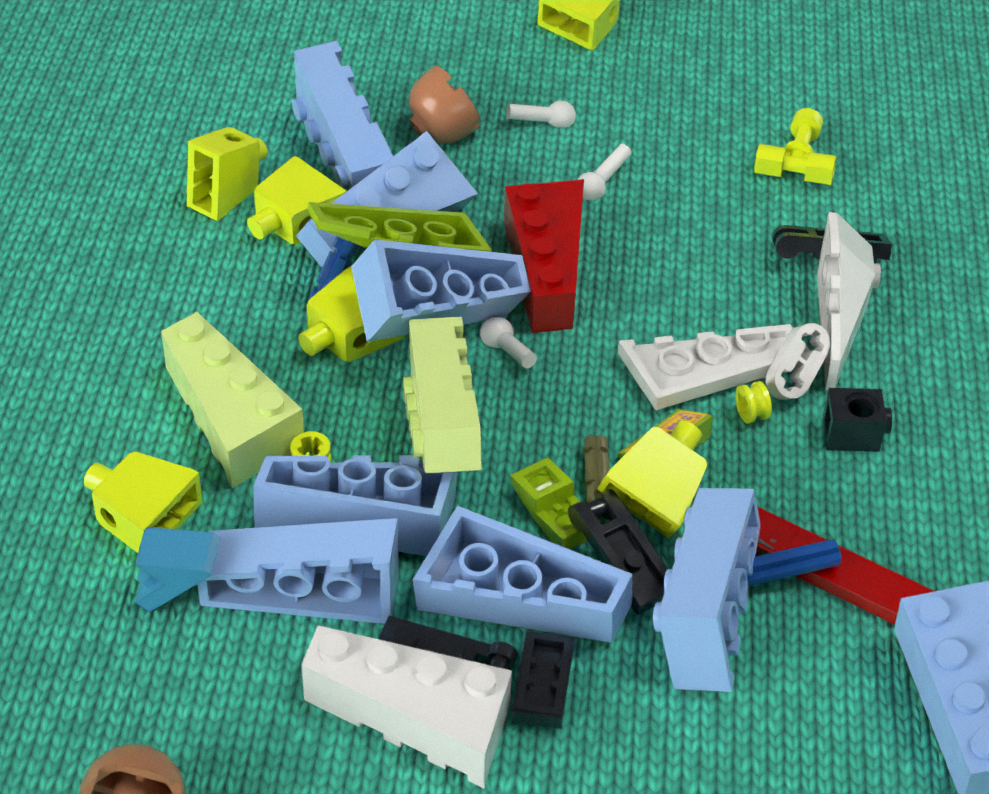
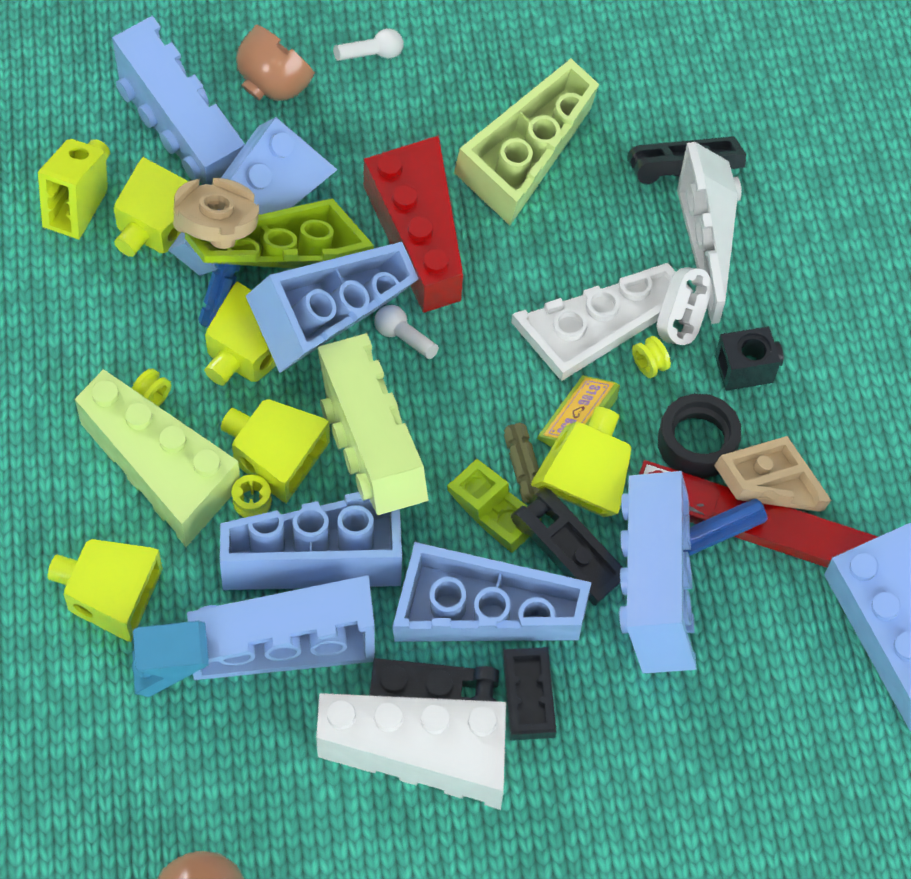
camera: 15 degrees left, 15 degrees up
(245, 341) = (152, 386): none -> neon yellow bush
(342, 191) = (199, 216): none -> tan plate
(351, 410) = (277, 444): none -> neon yellow torso
(596, 181) = (441, 122): white bar -> none
(672, 201) = (522, 144): none -> yellowish green wedge
(796, 455) = (698, 407): none -> black tyre
(798, 154) = (633, 56): neon yellow bar -> none
(858, 525) = (772, 475): none -> tan wing

